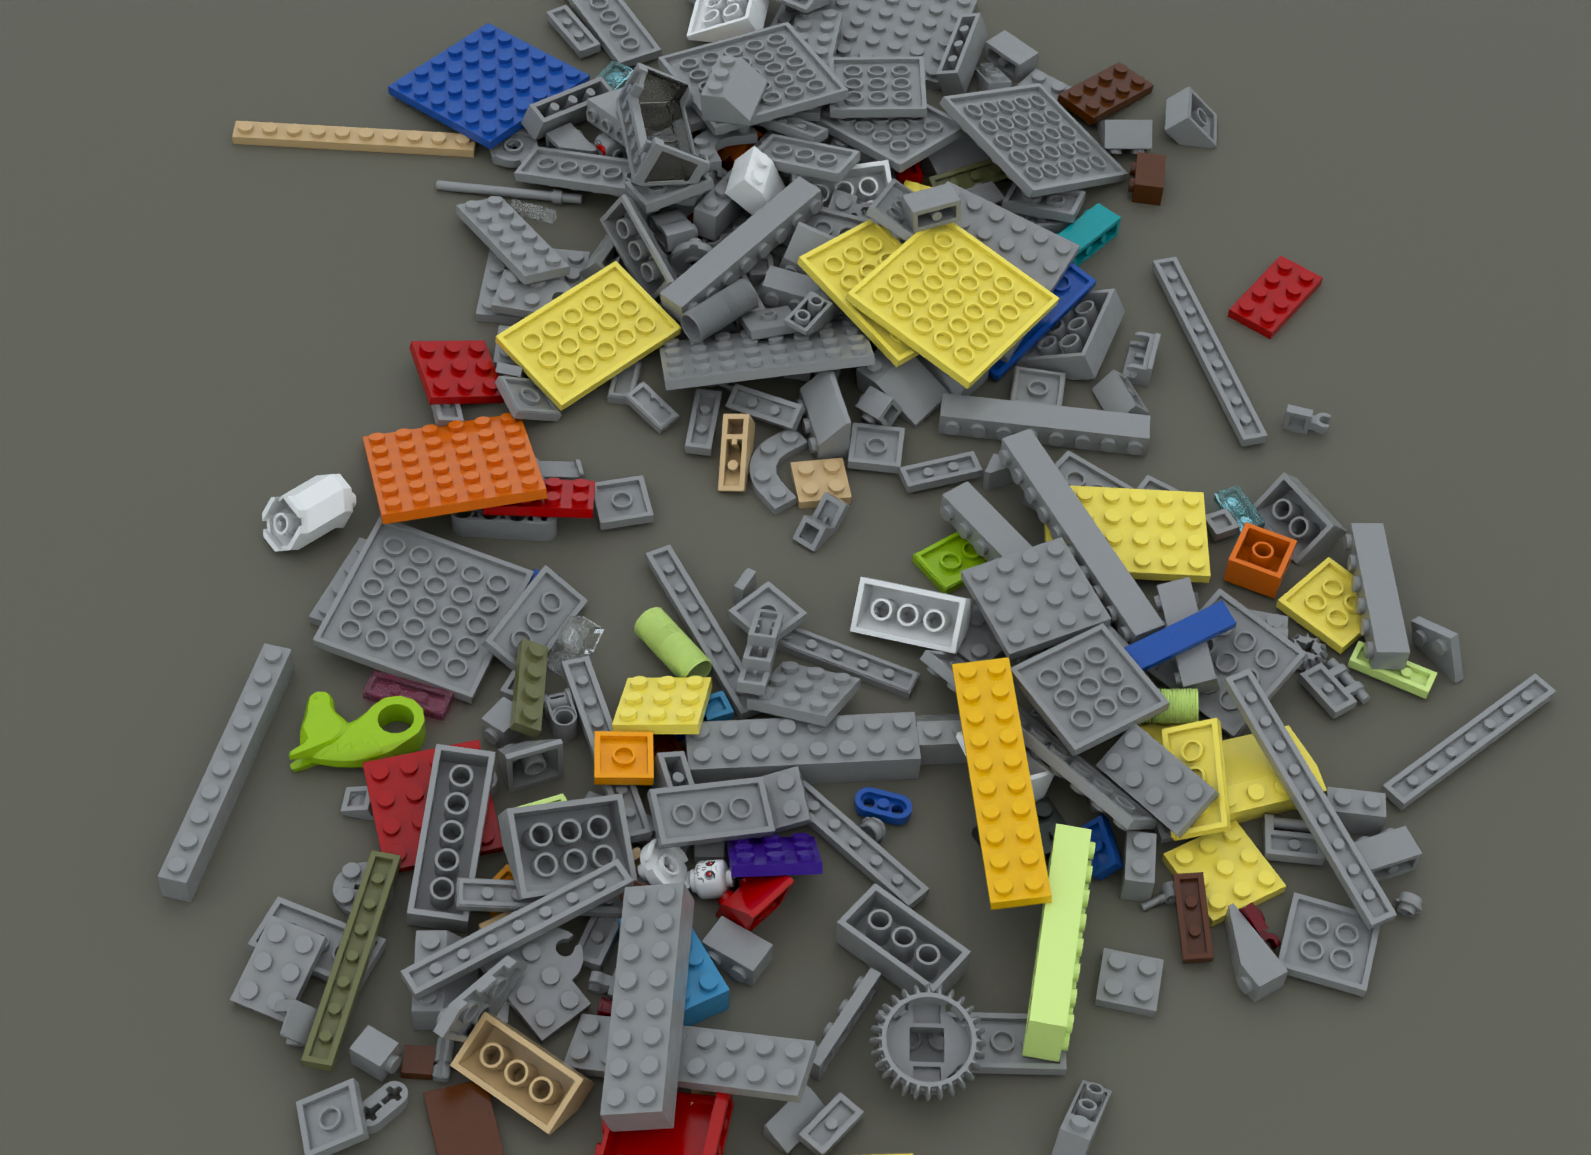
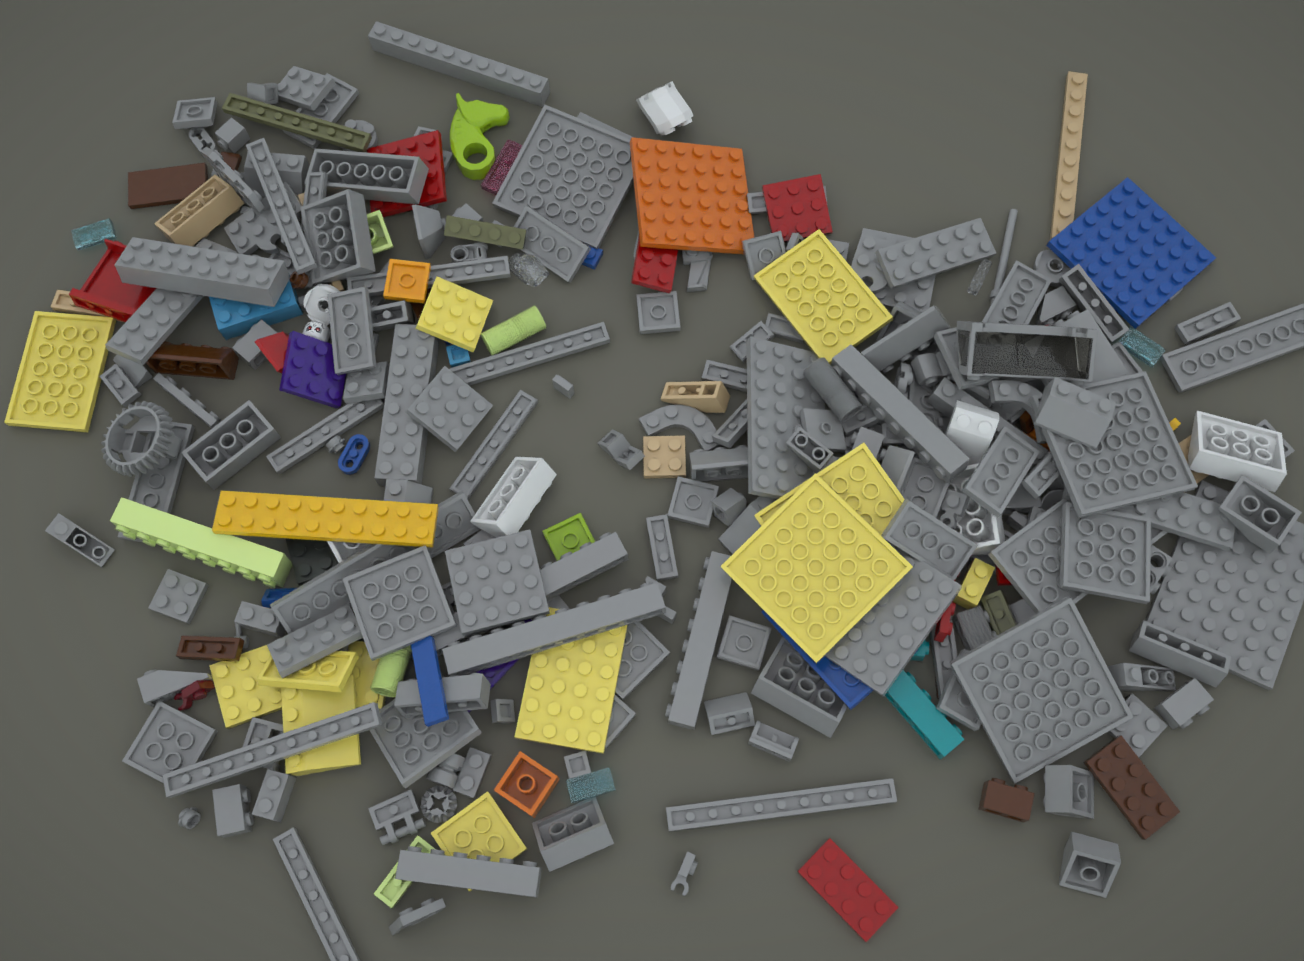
camera: 105 degrees right, 20 degrees up
(760, 652) = (484, 379): light grey slope -> none
(768, 598) = (529, 395): light grey plate -> none
(775, 998) = (194, 361): none -> reddish brown slope
(931, 207) = (909, 554): light grey brick -> none

